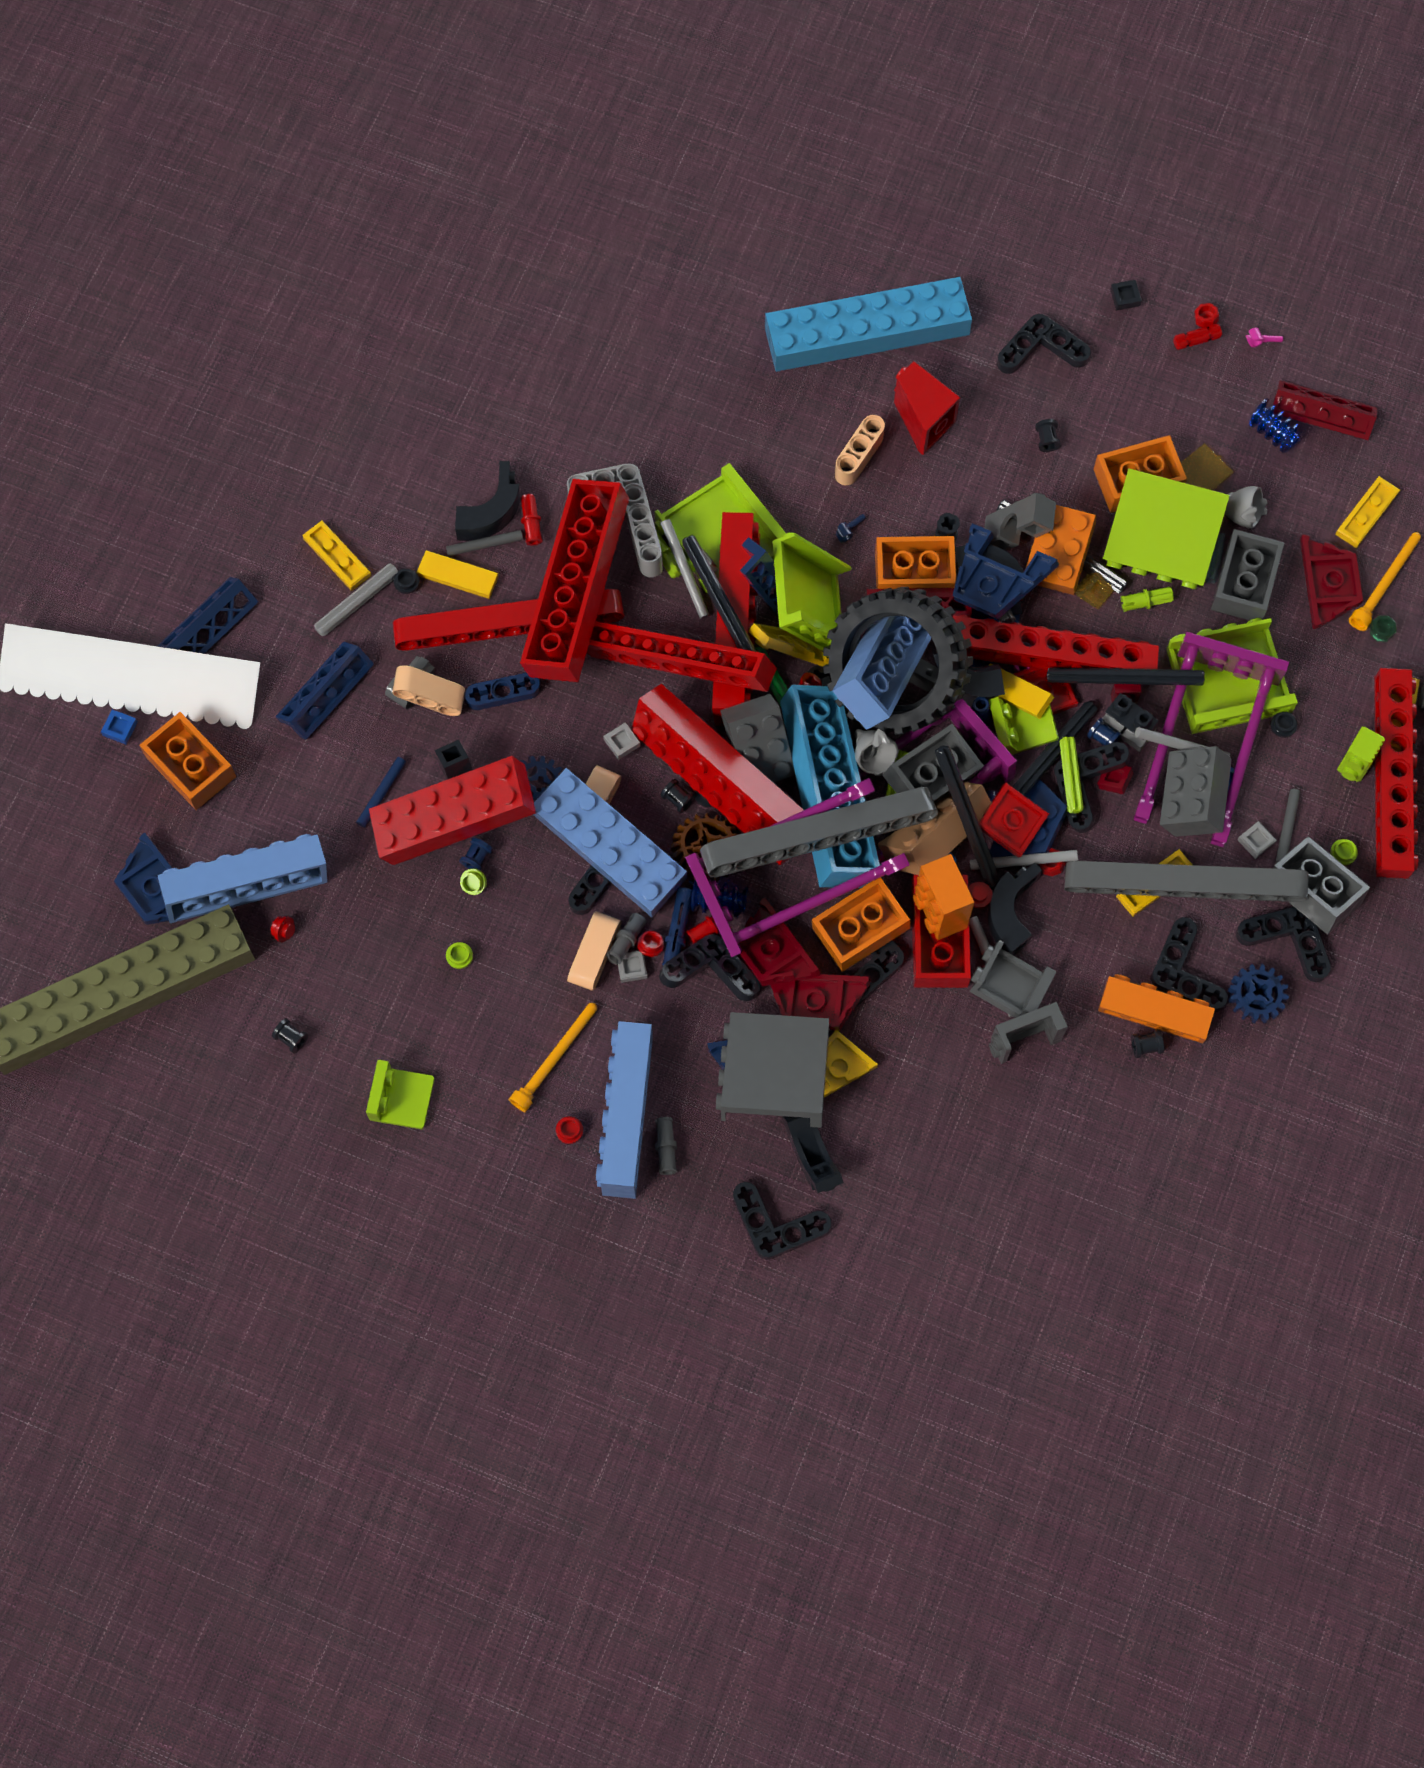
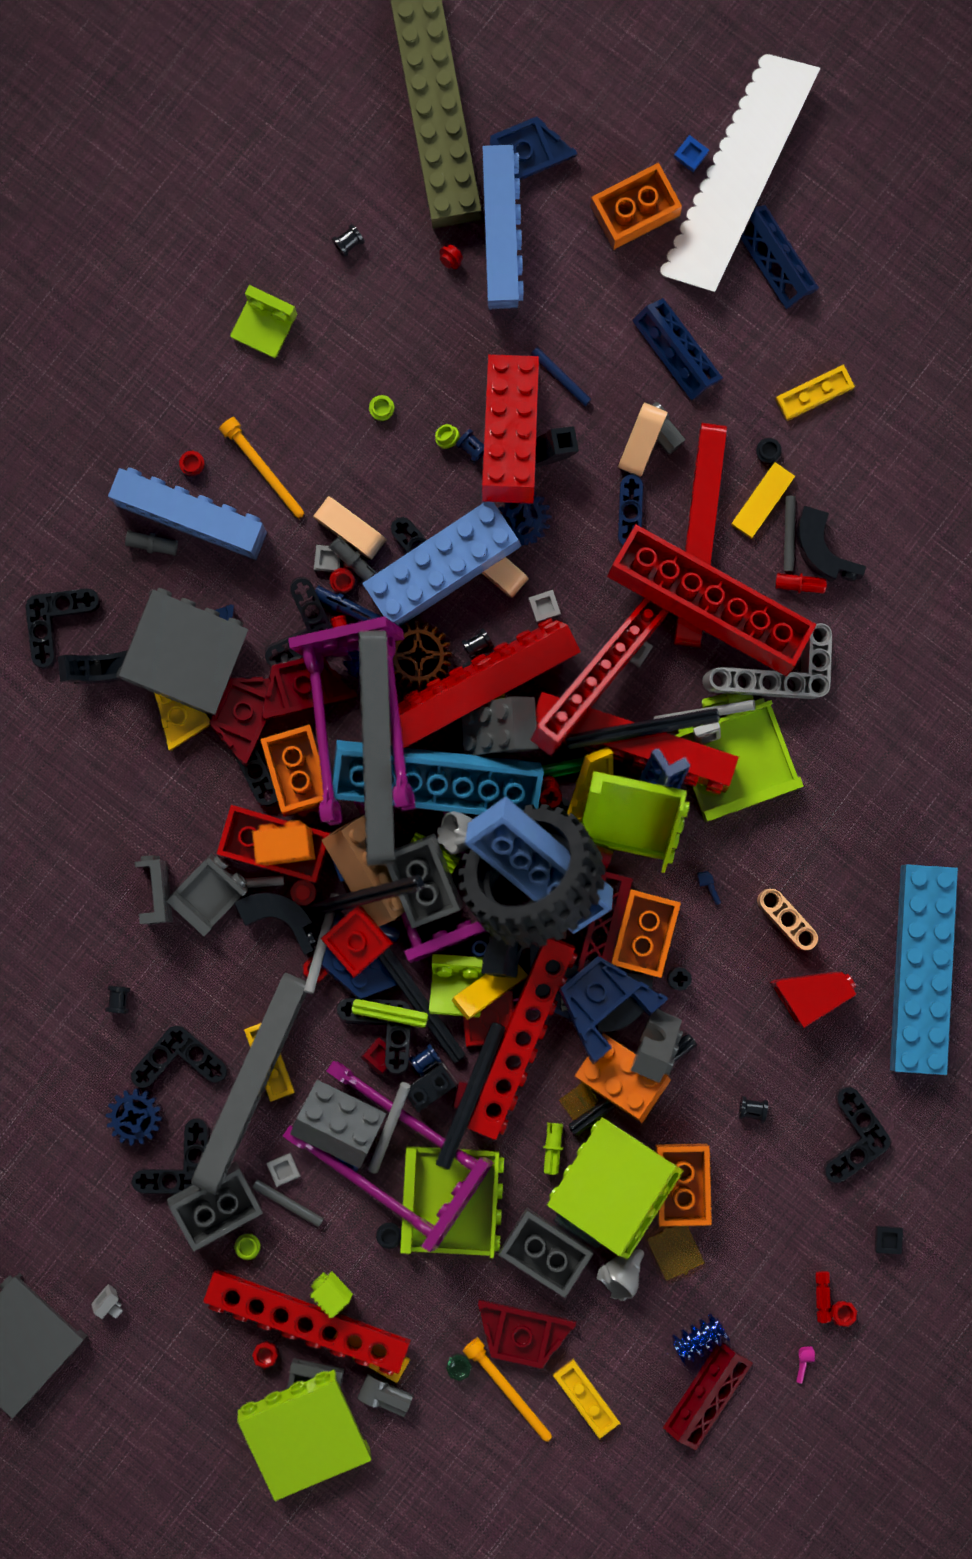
camera: 110 degrees right, 15 degrees up
(356, 600) = (762, 399): light grey axle -> none
(1156, 1009) = (144, 1017): orange brick -> none

